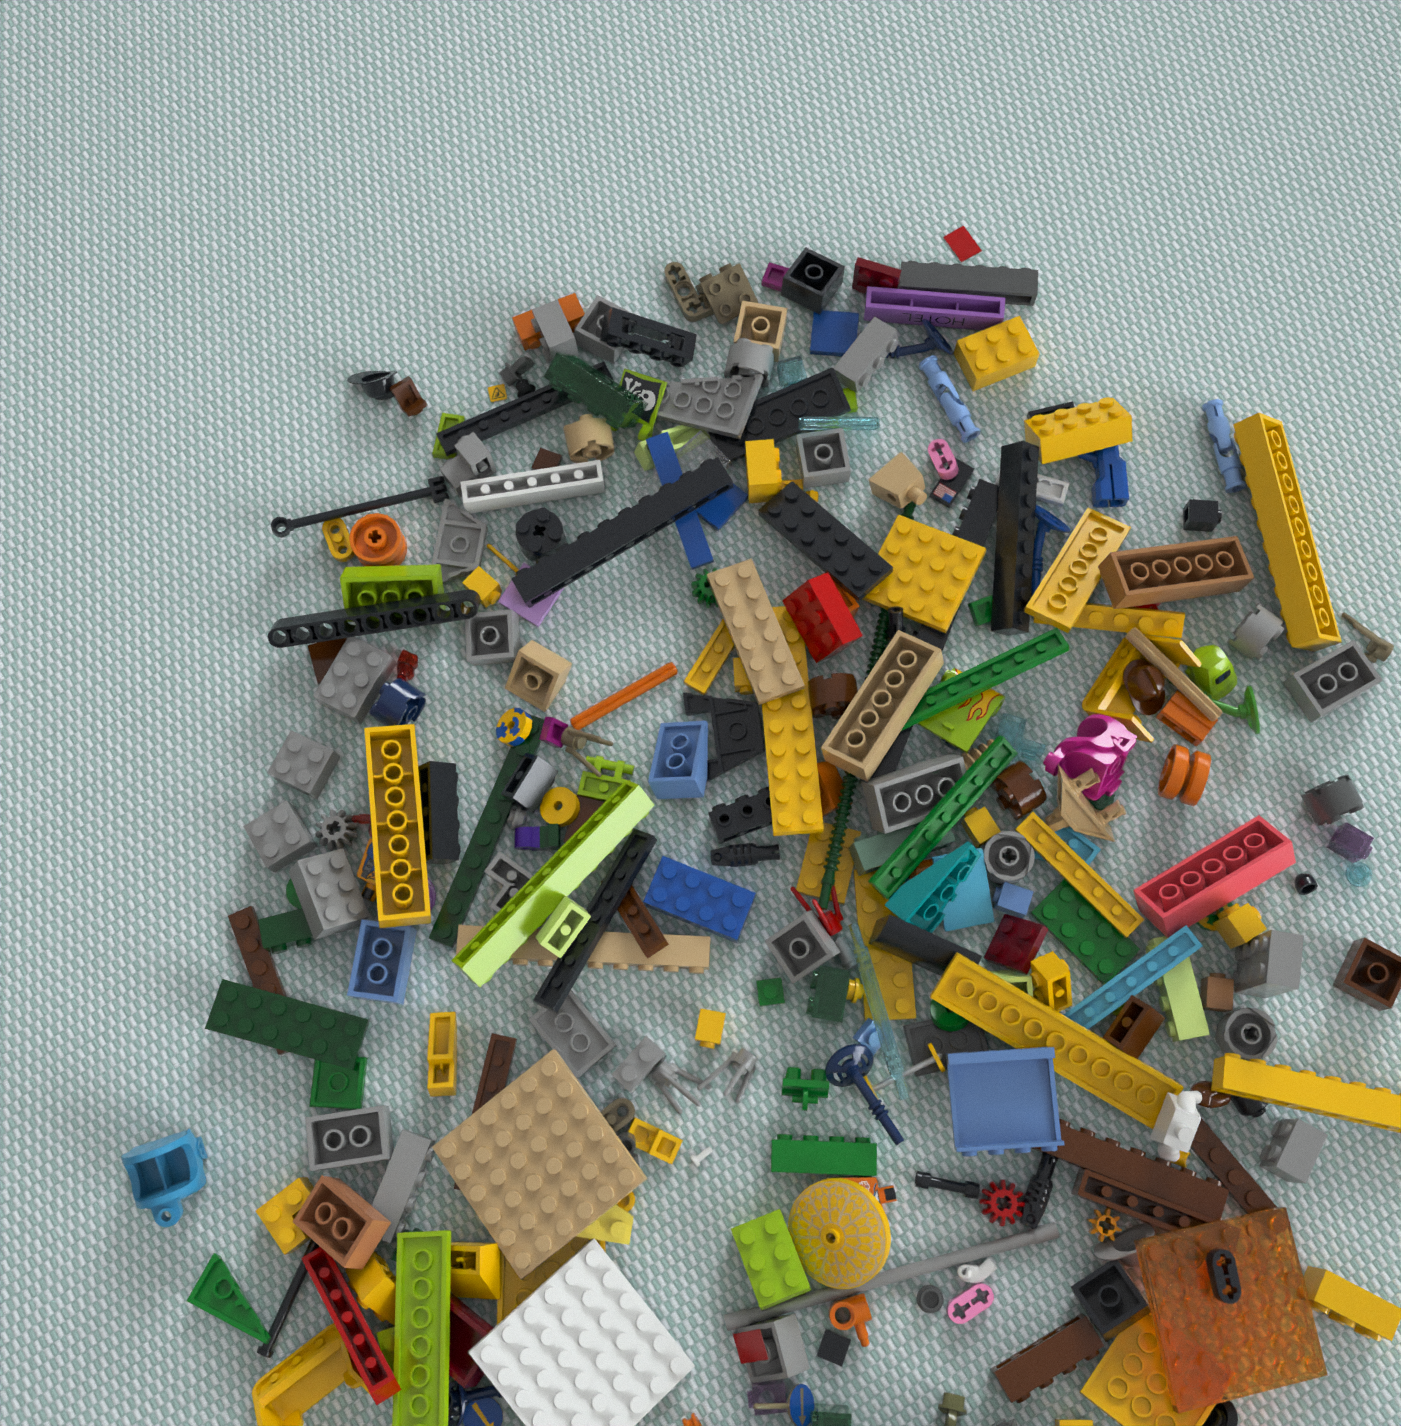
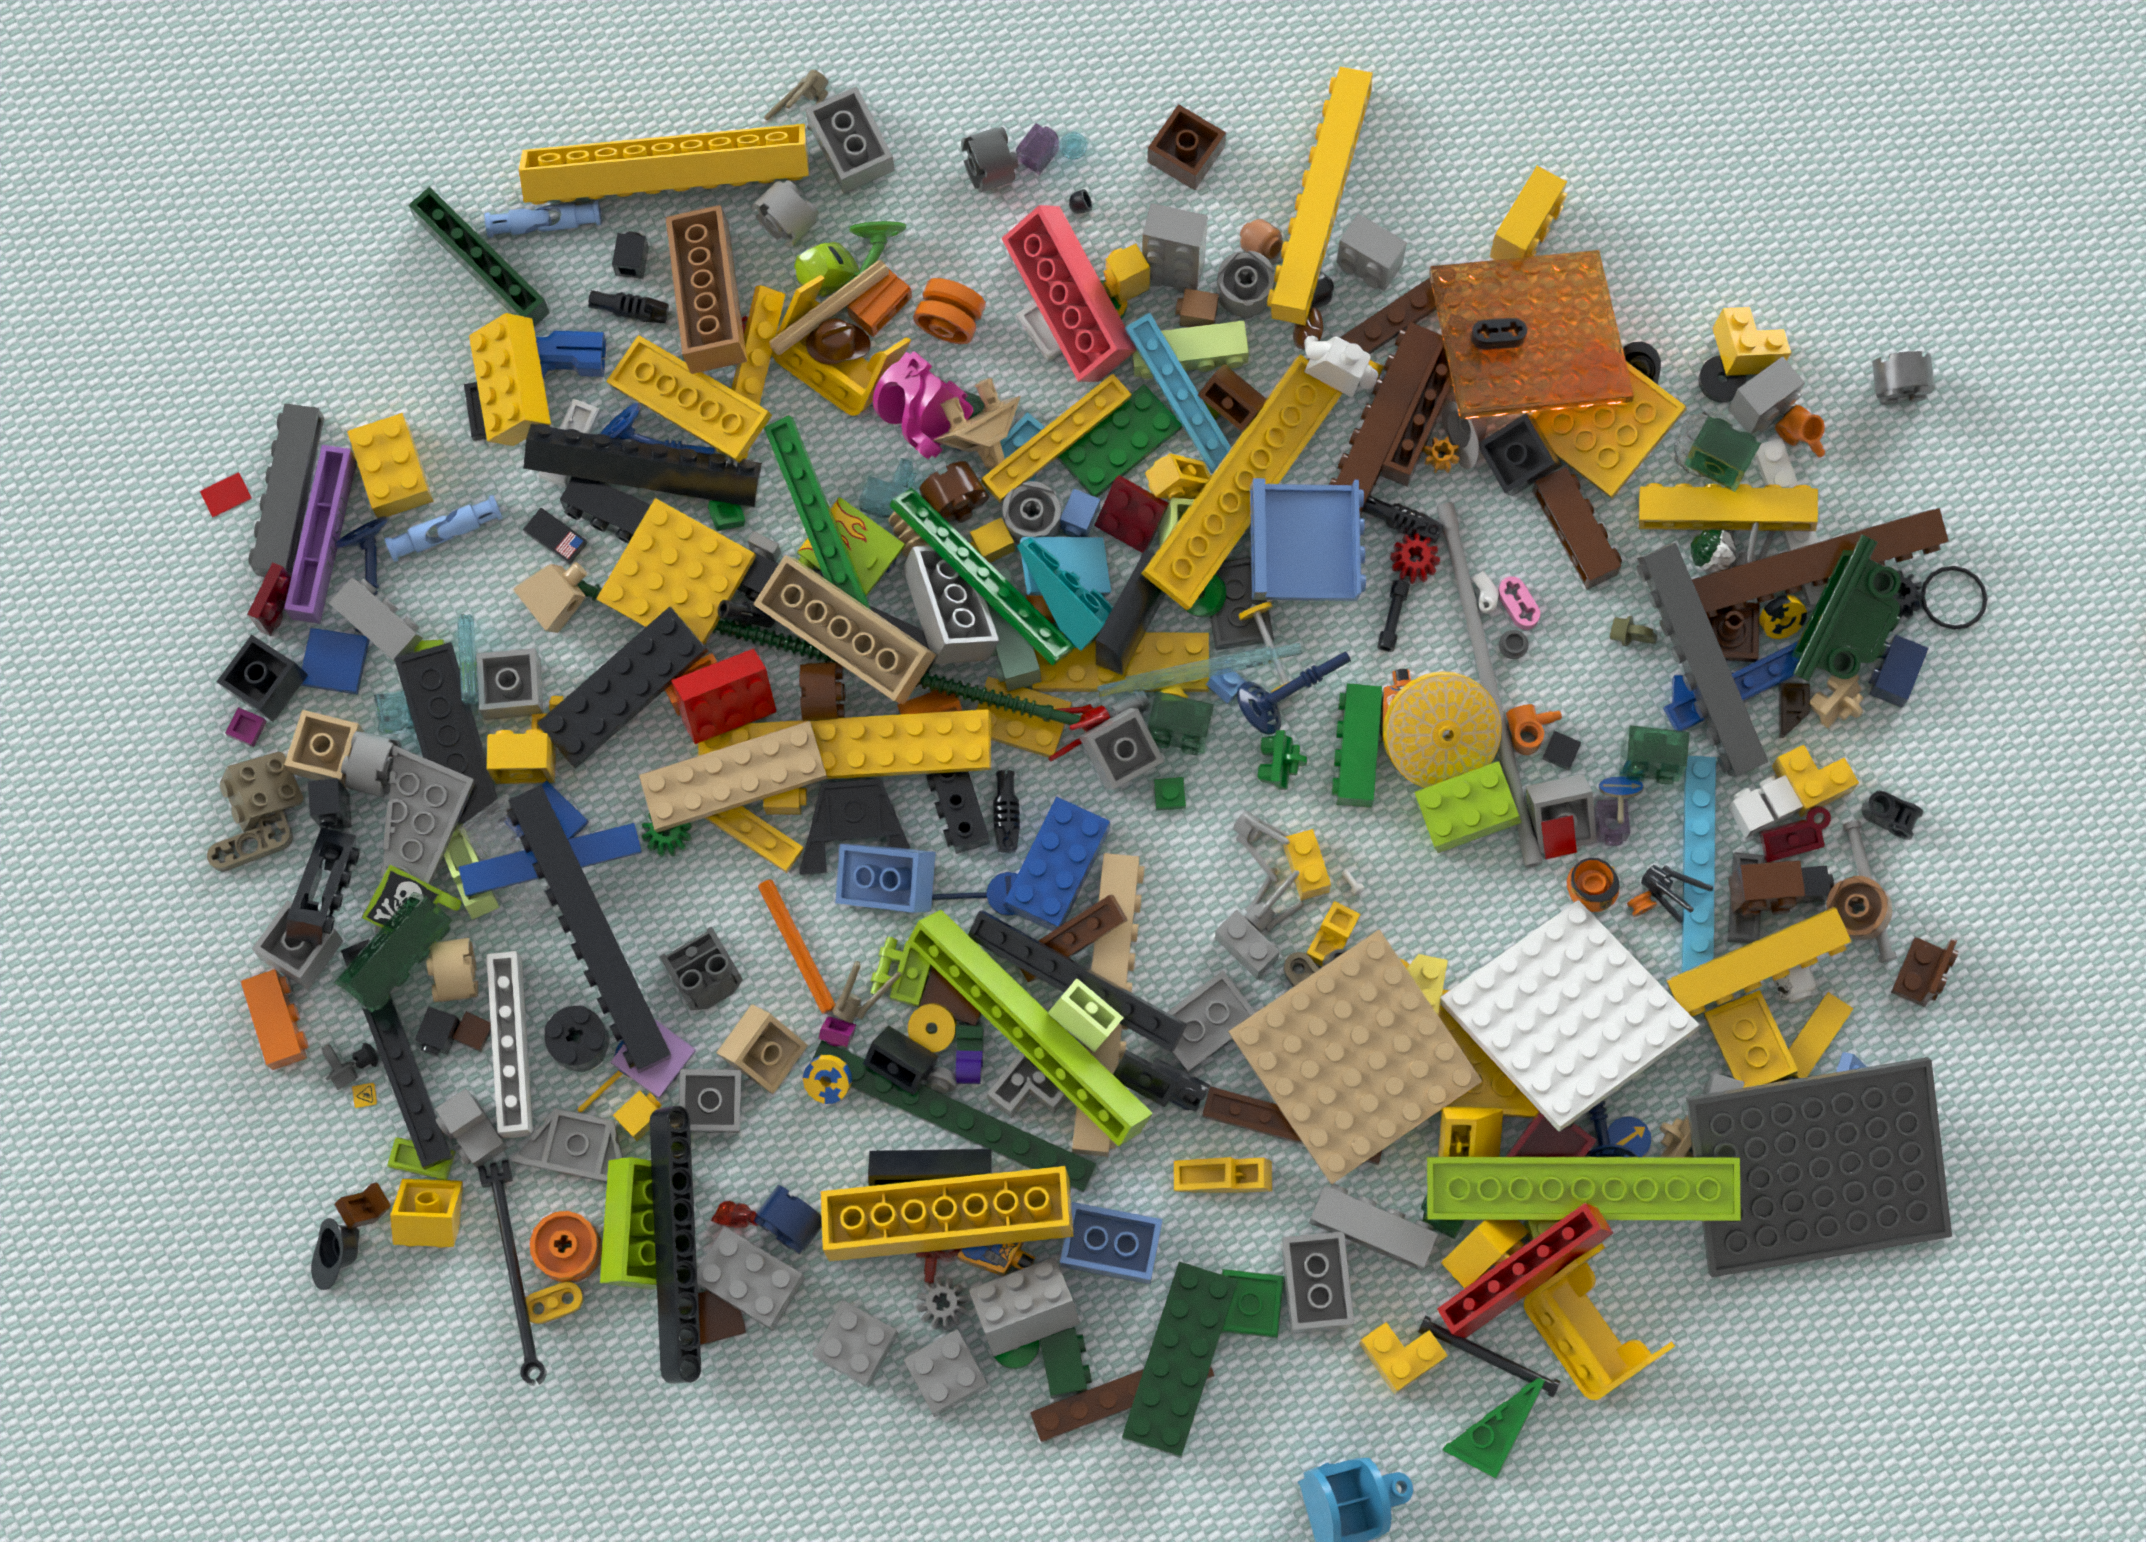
camera: 90 degrees left, 0 degrees up
(341, 1222) = (1413, 1283): nougat brick -> none
(405, 443) = (427, 1213): none -> yellow slope
(515, 996) = (1160, 1081): none -> black plate
(544, 435) = (437, 1032): none -> black brick
(554, 330) = (298, 1004): light grey brick -> none
(598, 624) = (703, 971): none -> dark grey slope
(677, 851) = (996, 893): none -> blue piece
(710, 1028) = (1208, 862): yellow brick -> none
(710, 1380) = (1593, 884): none -> orange piece
(711, 1114) = (1305, 856): none -> yellow brick
(713, 338) = (329, 804): none -> black brick
(947, 457) = (523, 536): bright pink beam -> none
(955, 641) = (764, 546): none -> light grey plate
(1156, 518) = (630, 306): none -> black hinge
(1177, 854) = (1039, 332): none -> white tile
(1181, 398) = (477, 257): none -> dark green brick
(1292, 1047) = (1261, 238): none -> nougat head

